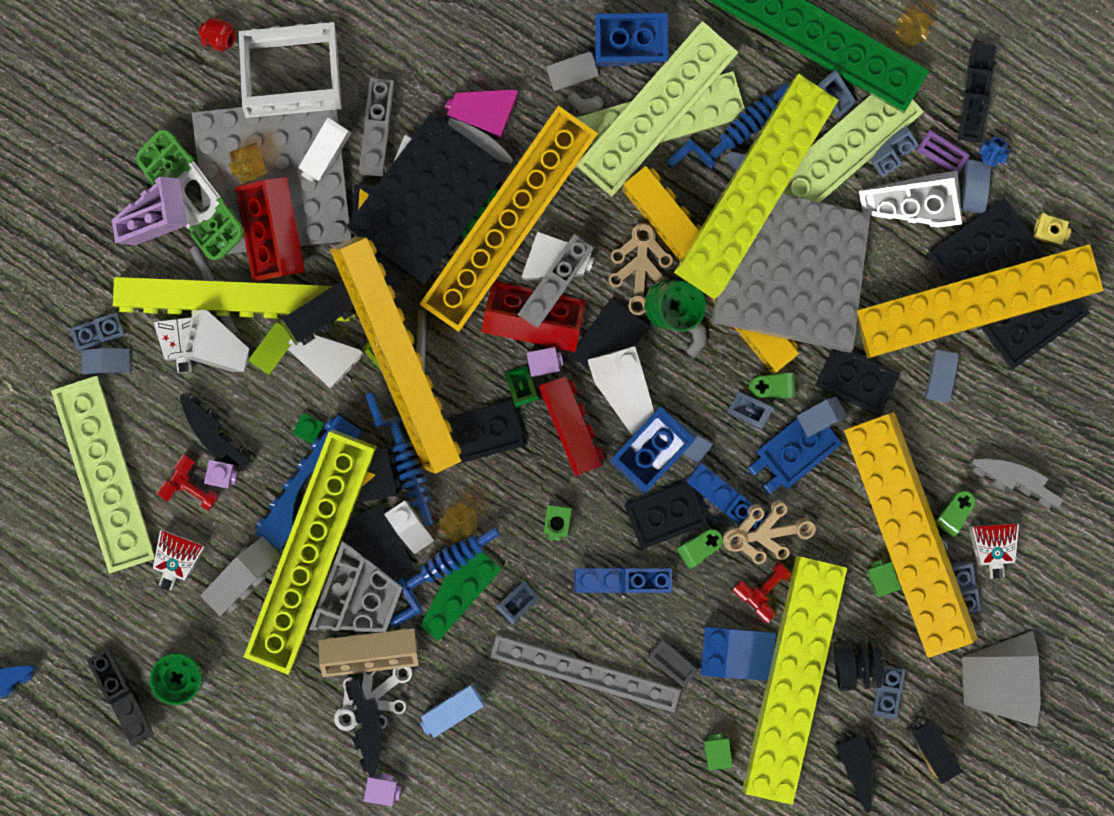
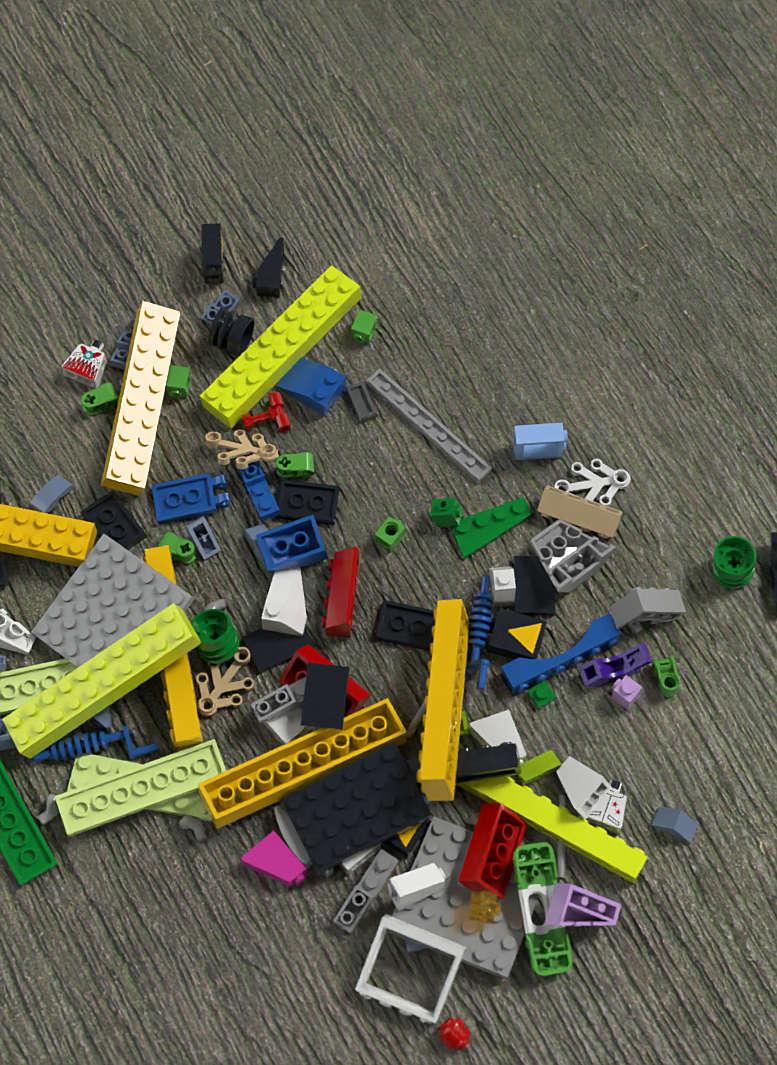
camera: 150 degrees left, 20 degrees down
(96, 332) = (670, 850): sand blue slope -> none
(103, 474) = (717, 740): yellowish green plate -> none
(176, 558) = (690, 650): torso -> none
(181, 481) = (660, 703): red bar -> none
(189, 517) = (666, 672): none -> bright green piece
(205, 426) = (619, 733): black slope -> none
(245, 495) = (609, 670): none -> dark purple arch
(310, 551) = (584, 598): neon yellow brick -> none
(369, 736) = (608, 459): black slope -> none
(382, 790) = (619, 417): lavender brick -> none
(445, 562) = (487, 543): blue piece -> none
(458, 522) = (470, 567): clear yellow brick -> none
(509, 575) = (446, 512): none -> green brick
(517, 602) = (454, 488): sand blue slope -> none
(519, 292) = (325, 696): none -> black tile
(521, 386) = (363, 639): green slope -> none
(544, 362) = (336, 648): lavender brick -> none
(572, 71) = (189, 857): light grey slope -> none
(622, 580) = (363, 471): blue slope -> none
(631, 39) = (130, 852): blue slope -> none
(737, 43) = (51, 809): none -> light grey arm
(822, 416) = (154, 507): sand blue slope -> none
(1004, 679) = (134, 278): light grey wedge -> none
(1008, 474) = (43, 402): light grey slope -> none

